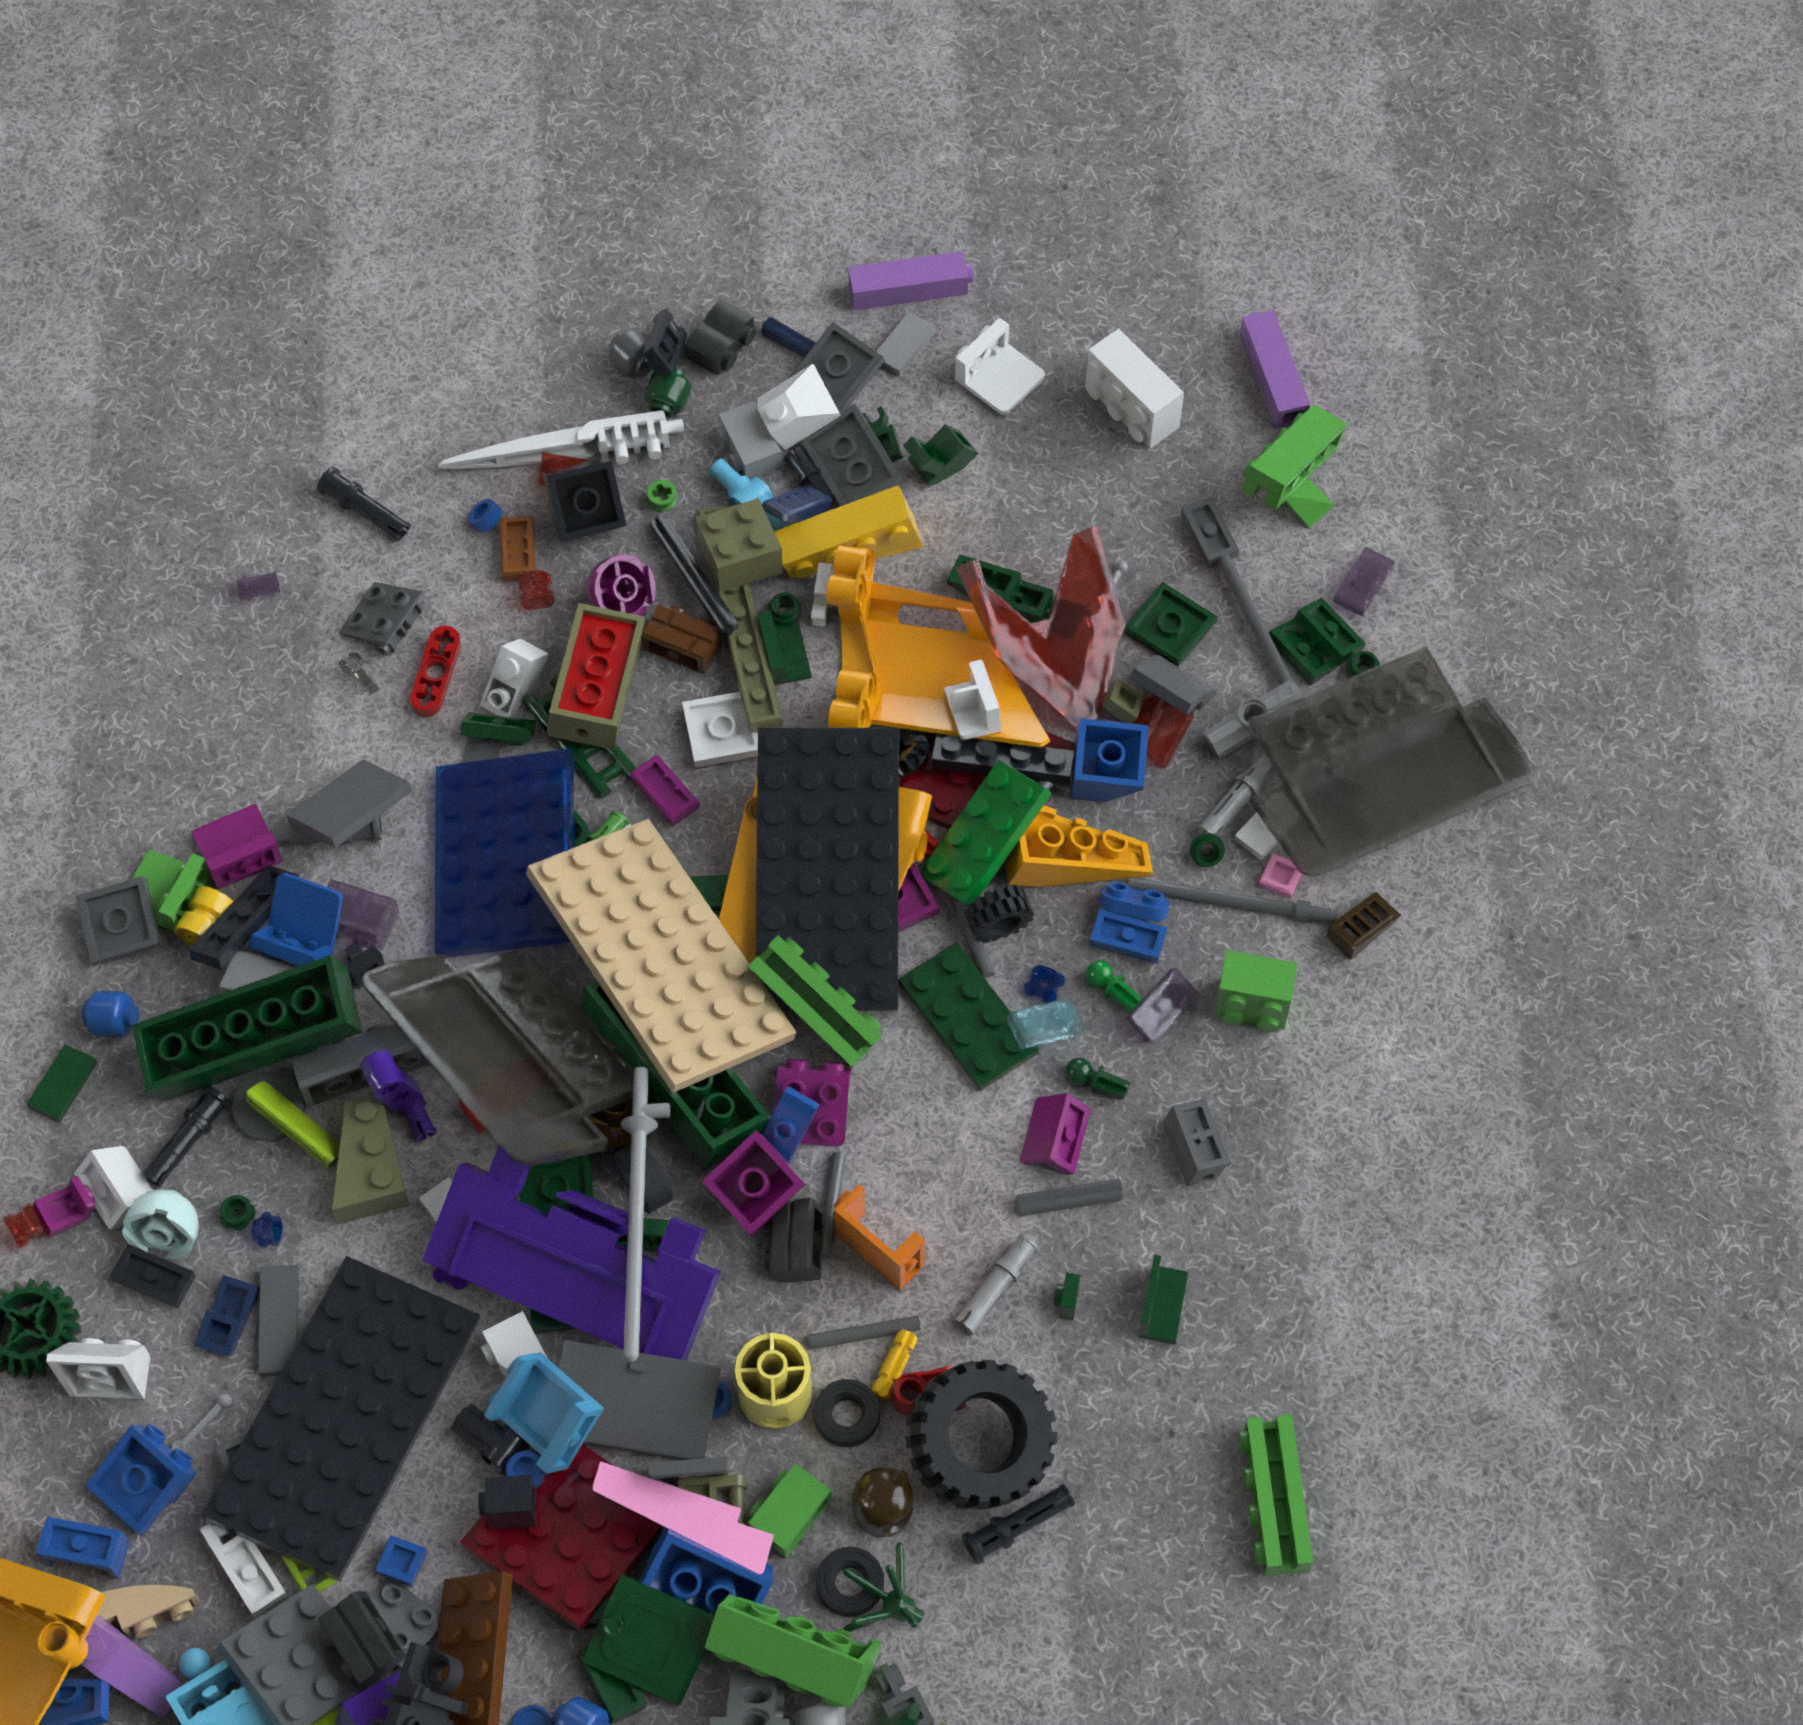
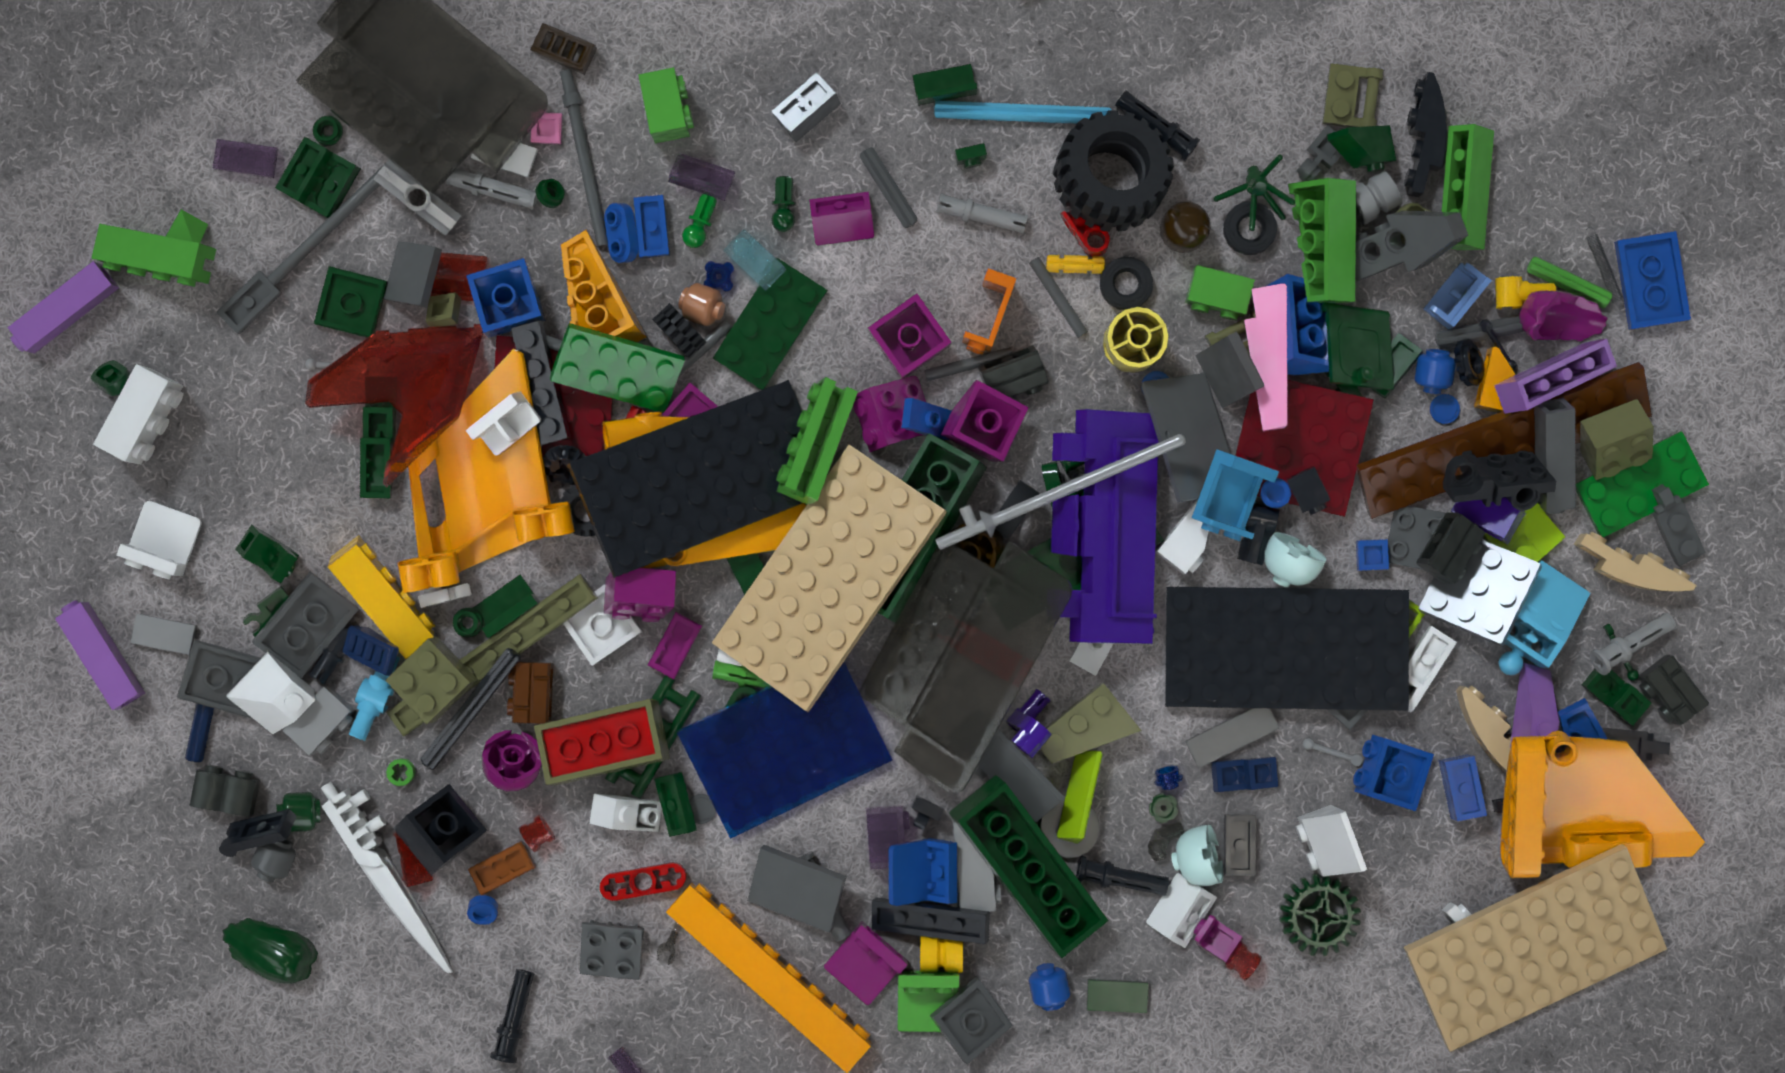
camera: 115 degrees left, 25 degrees up
(204, 1194) = (1161, 838): none -> clear smoke arm
(272, 747) = (769, 977): none -> light orange brick
(440, 1460) = (1292, 561): none -> light aqua cylinder
(542, 323) = (270, 950): none -> dark green hair
(733, 765) = (640, 594): none -> magenta brick
(888, 1145) = (909, 336): none -> magenta brick
(1019, 951) = (701, 304): none -> nougat head
(1096, 1377) = (1014, 112): none -> medium azure axle
(1185, 378) = (111, 377): none -> dark green plate

